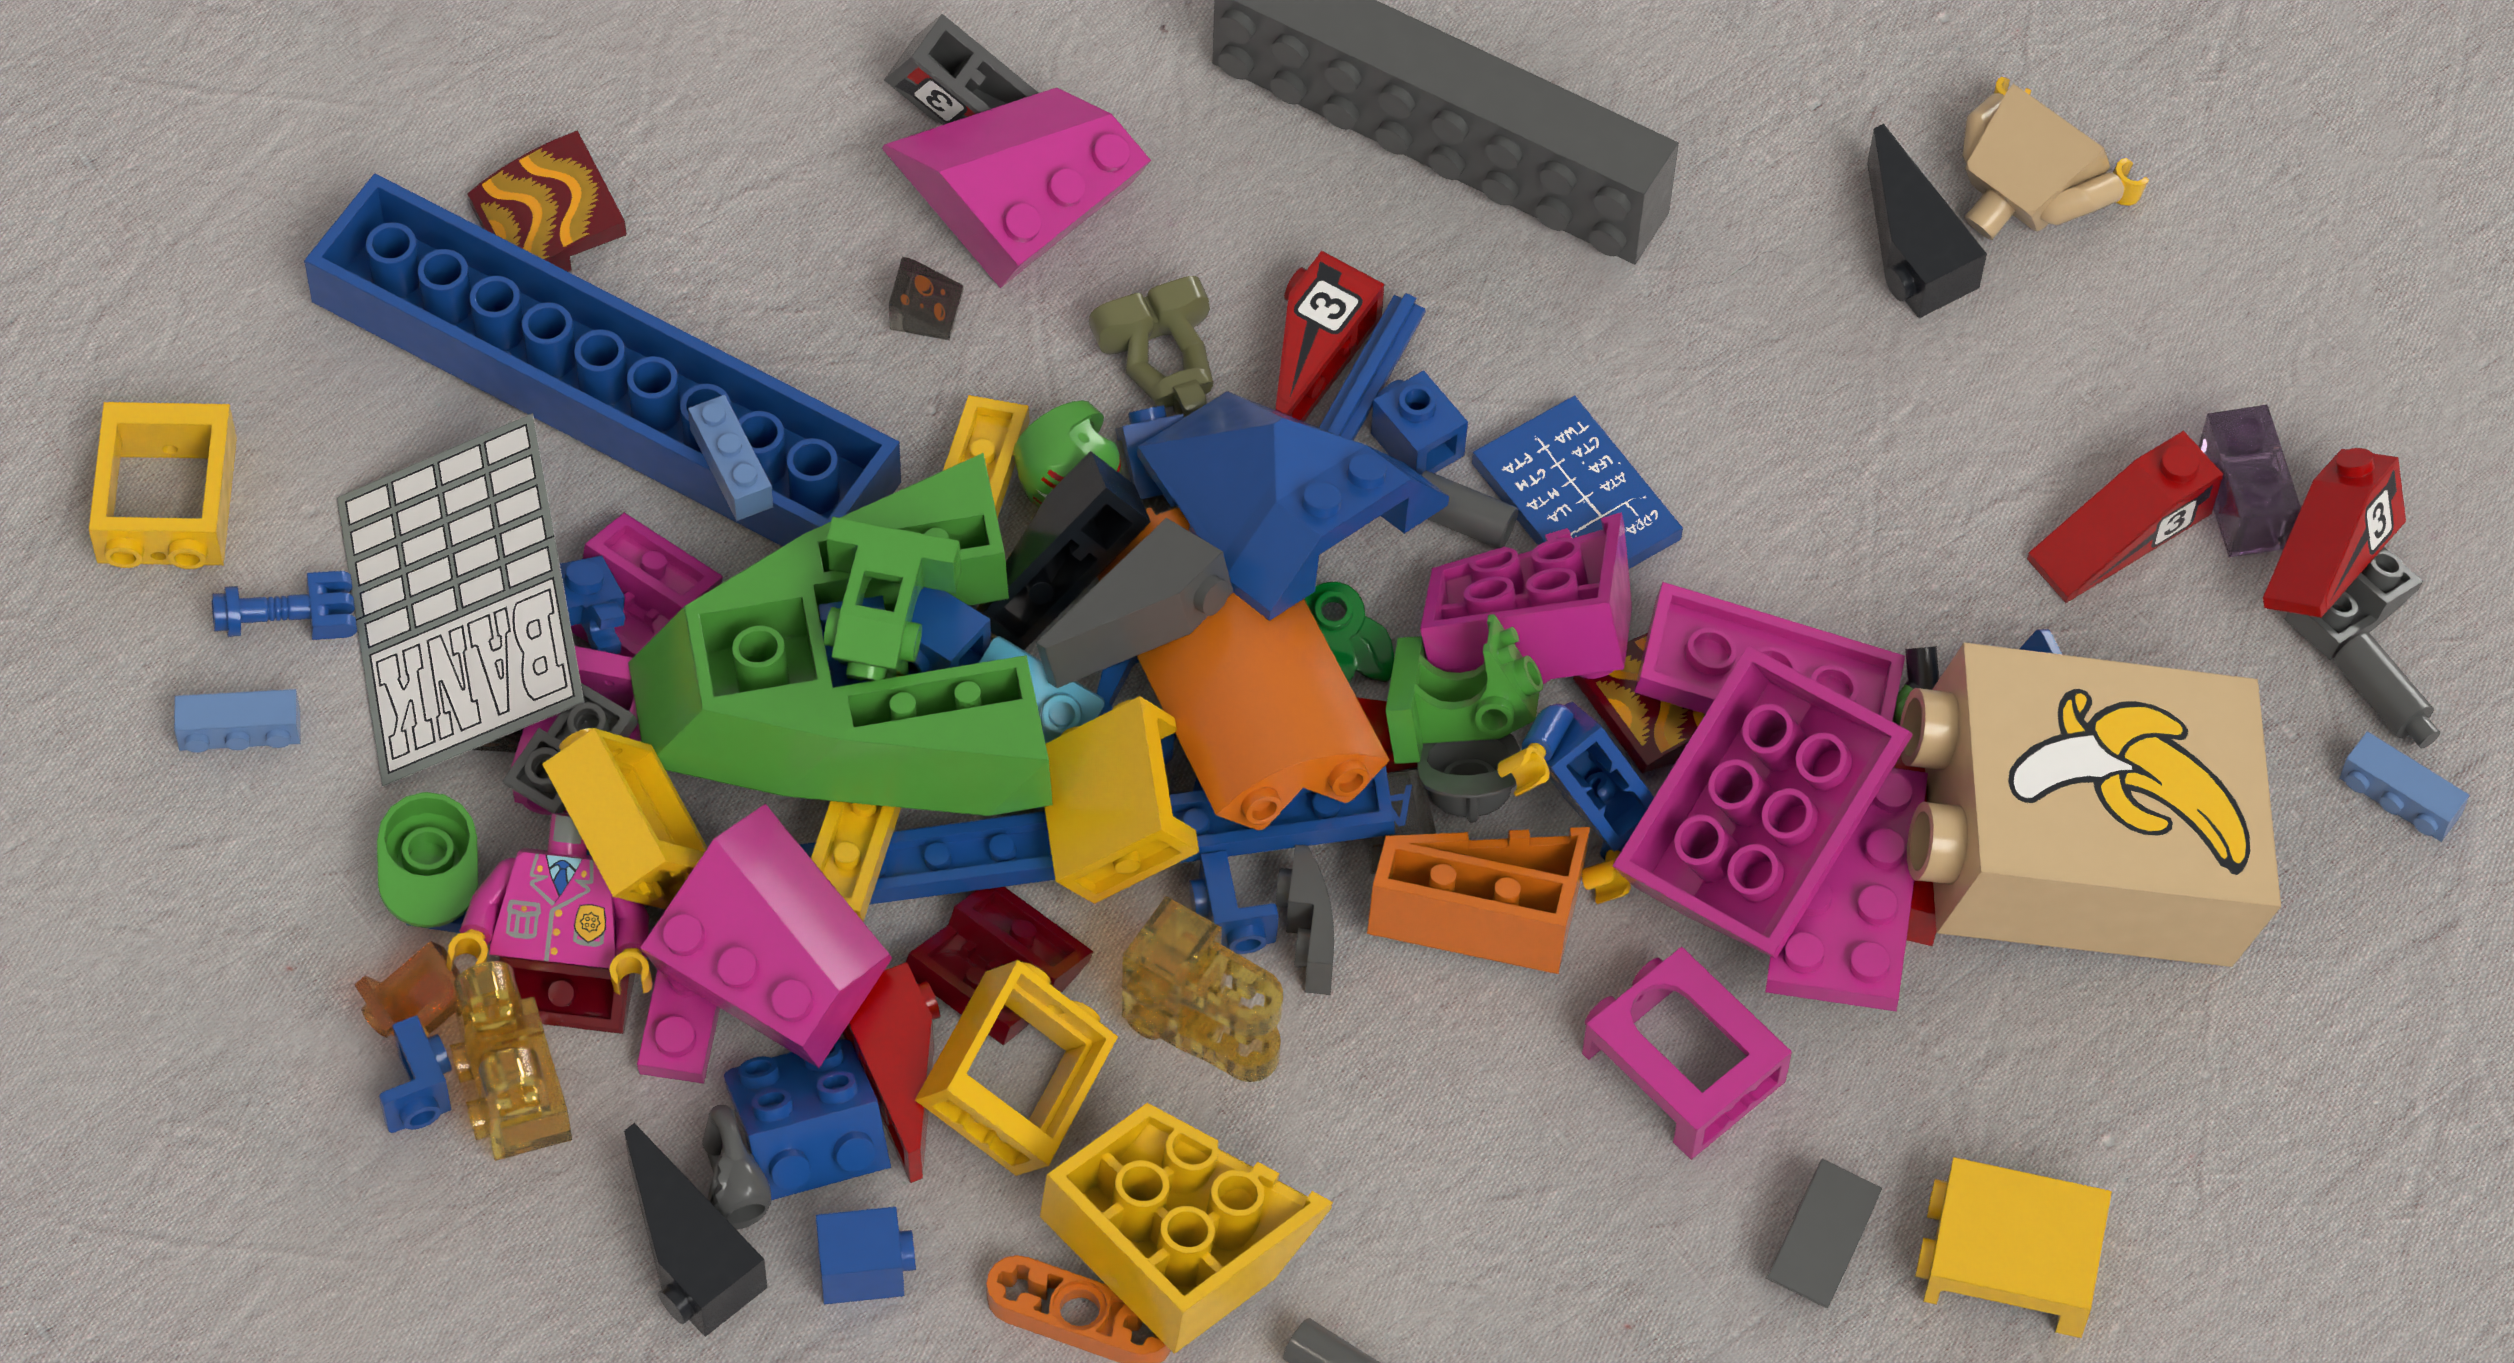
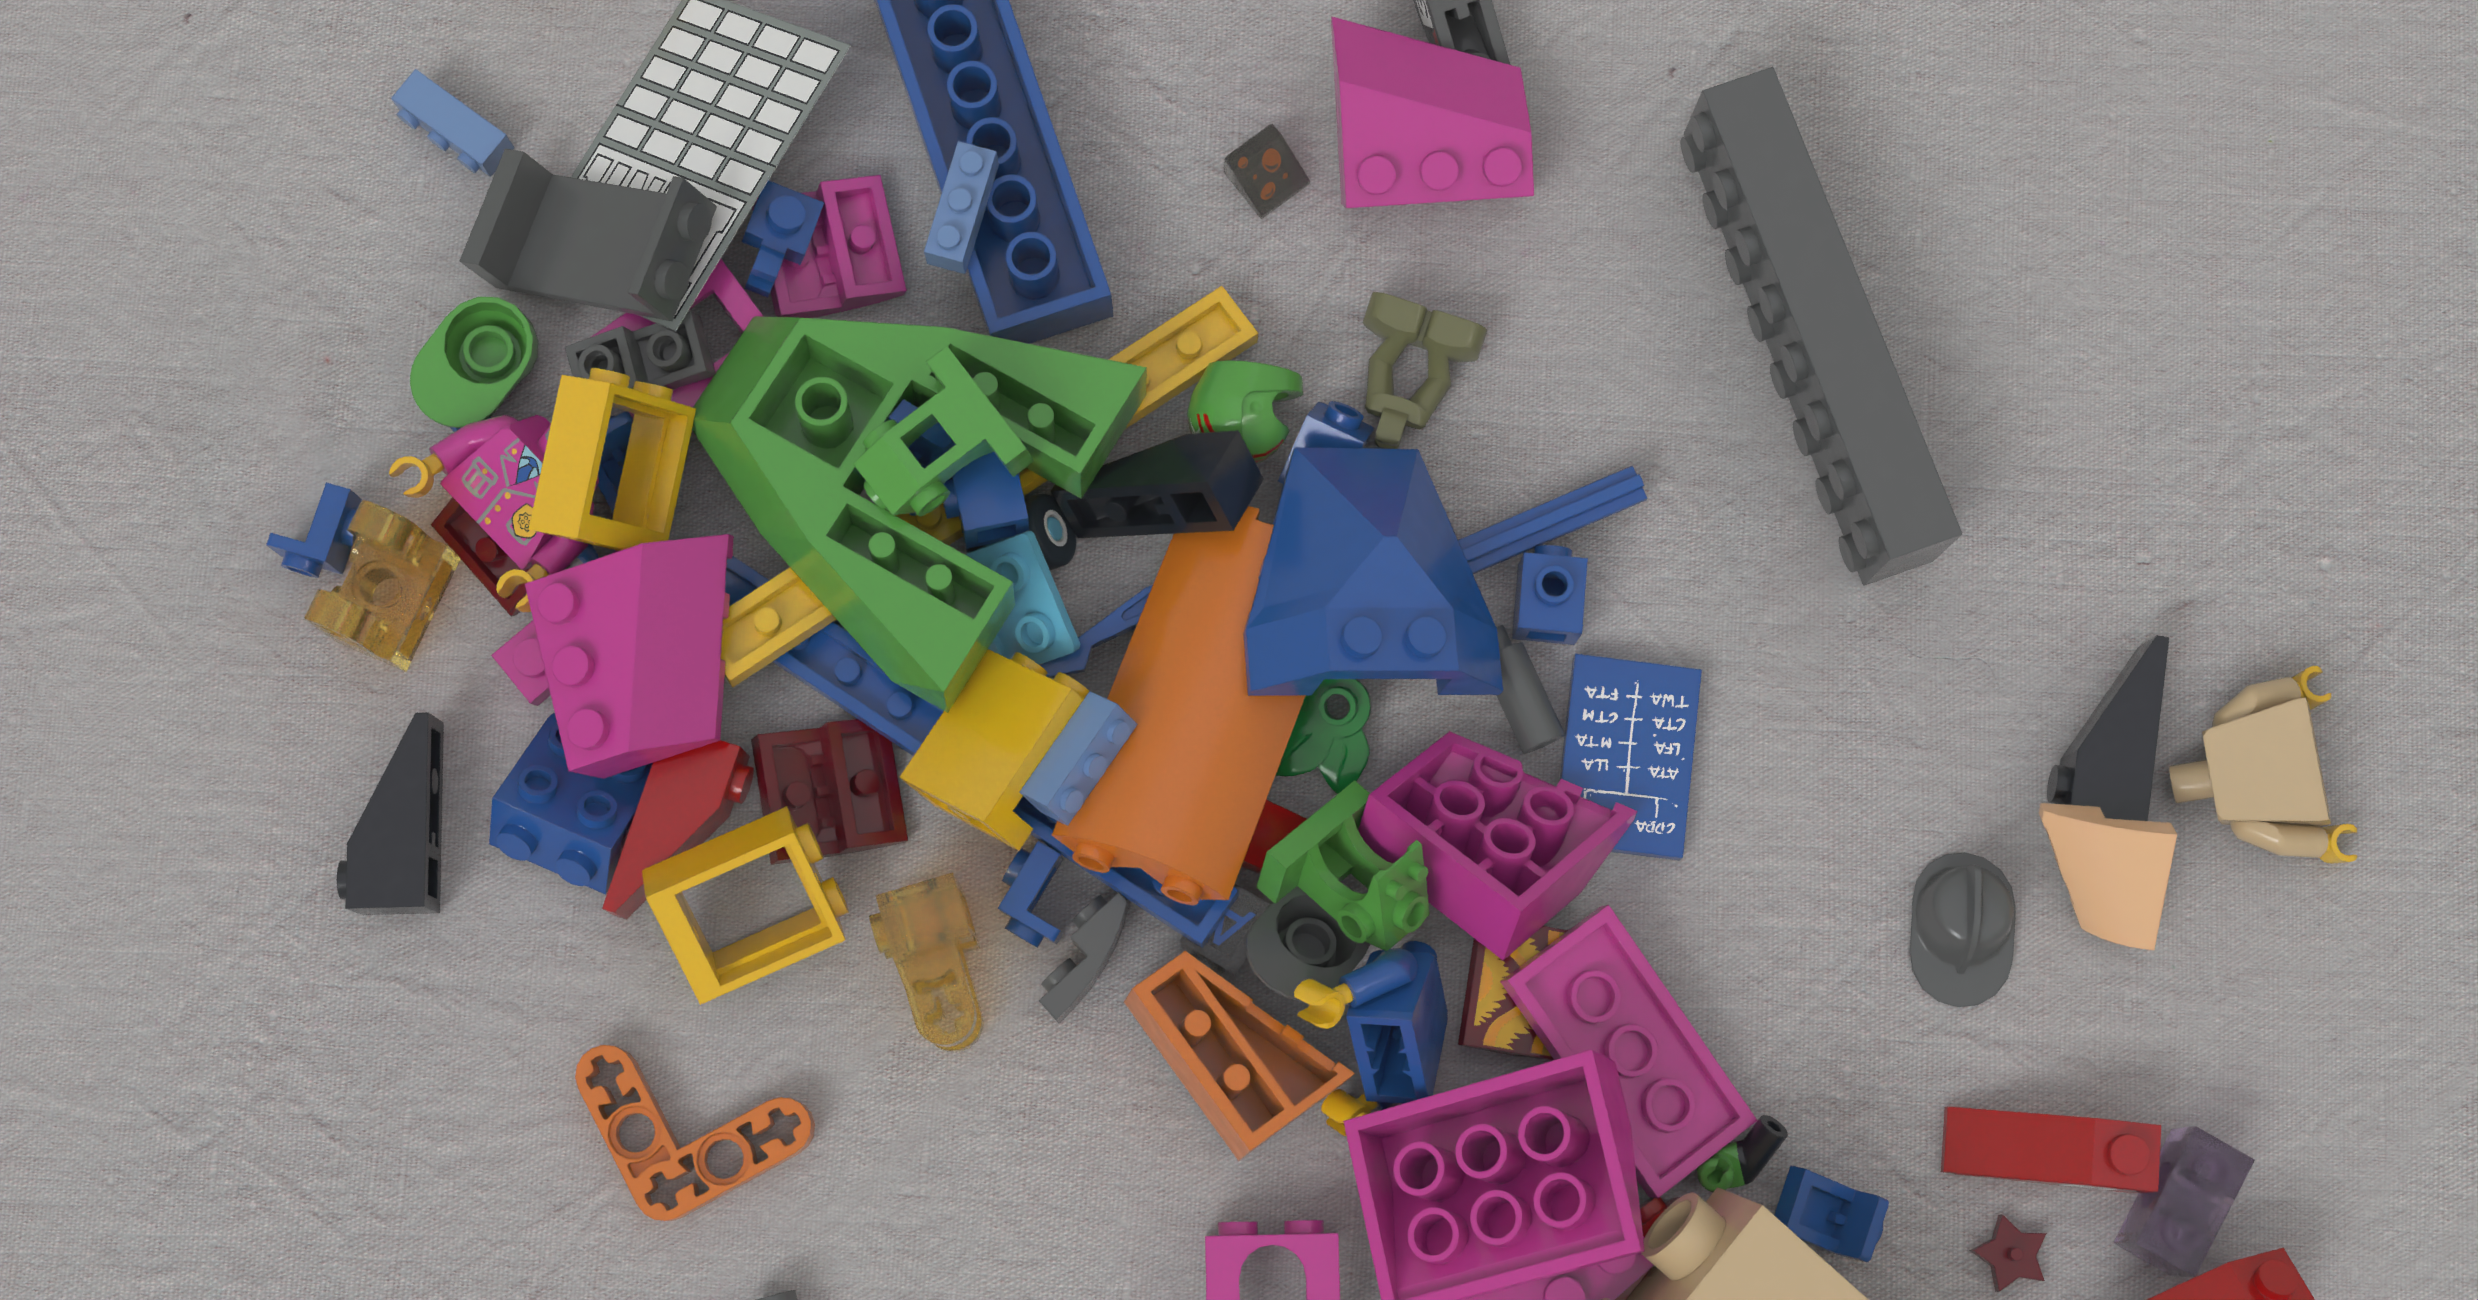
camera: 40 degrees right, 20 degrees up
(325, 604) = (522, 27): blue hinge -> none
(416, 988) = (364, 460): clear orange bracket -> none
(447, 703) = (588, 239): none -> dark grey panel
(738, 1183) = (466, 820): dark grey piece -> none
(863, 1255) = (513, 955): blue brick -> none
(1141, 604) = (1159, 602): dark grey slope -> none
(1176, 1221) = (742, 1141): yellow wedge -> none
(1187, 745) = (1078, 758): none -> medium blue piece
(1326, 323) = (1551, 448): red slope -> none
(1925, 431) = (1962, 929): none -> dark grey piece
(1992, 301) = (2112, 870): none -> light nougat slope
(2166, 615) = (2011, 1254): none -> dark red piece

